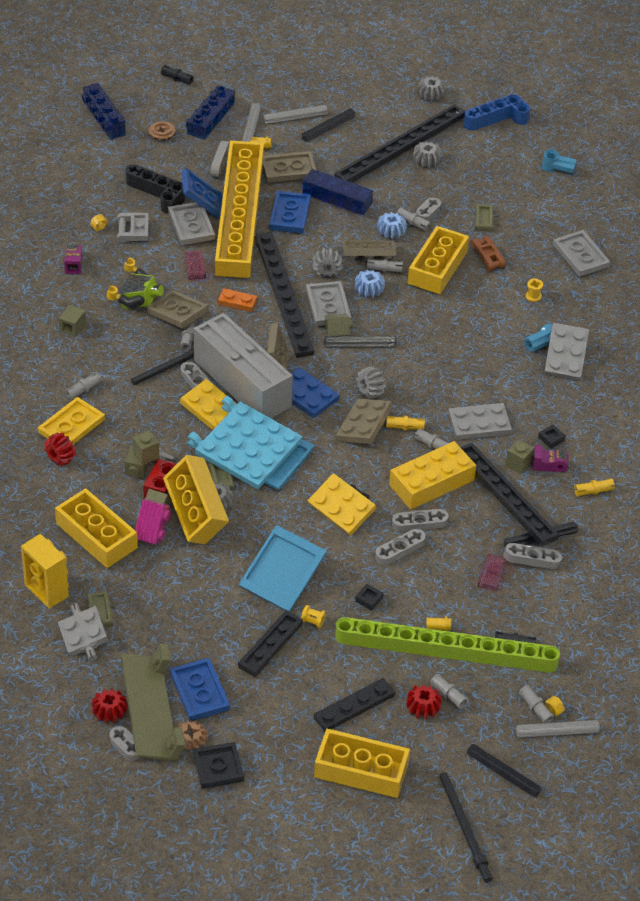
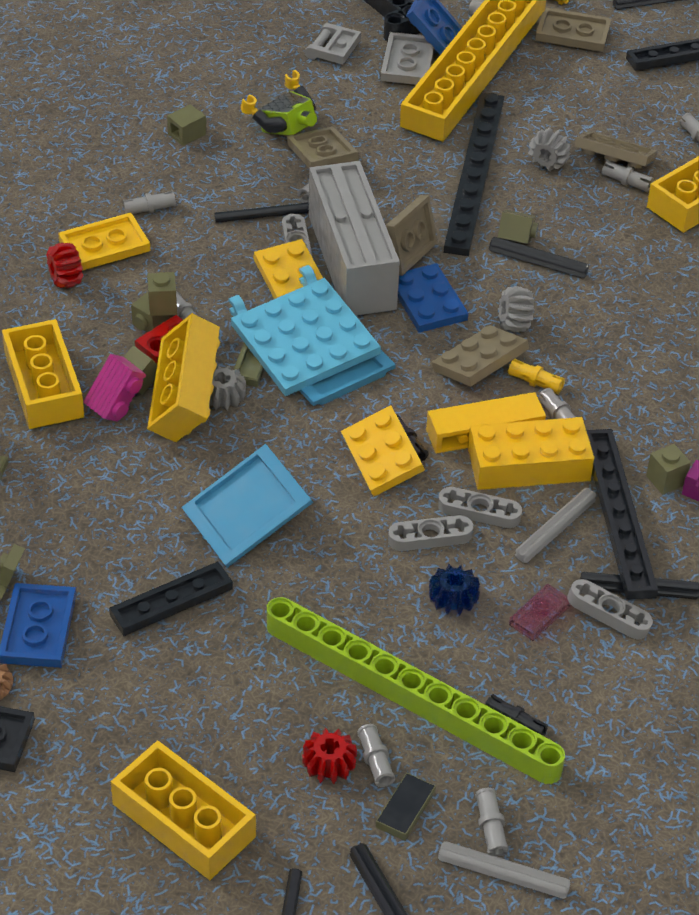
camera: 25 degrees right, 0 degrees up
(73, 257) = (238, 55): magenta leg -> none
(98, 222) = (292, 22): yellow axle -> none
(195, 265) = (381, 106): clear pink plate -> none
(237, 300) = (410, 162): orange plate -> none
(290, 212) = (542, 80): blue plate -> none
(319, 621) = (251, 583): yellow bush -> none
(326, 299) = (525, 194): light grey plate -> none
(337, 191) = (616, 72): clear blue brick -> none
(354, 704) = (232, 724): black plate -> none
(369, 283) = (593, 191): light blue gear -> none
(369, 597) = (344, 584): black plate -> none
(376, 473) = (450, 426): none -> yellow brick
(391, 225) = (665, 131): light blue gear -> none
(436, 576) = (454, 589): none -> clear blue gear
(439, 623) = (418, 655): yellow pin -> none
(471, 515) = (555, 525): none -> light grey axle
(479, 421) = (642, 406): light grey plate -> none
(482, 714) = (405, 806): none -> black tile
(555, 705) = (516, 834): yellow axle -> none

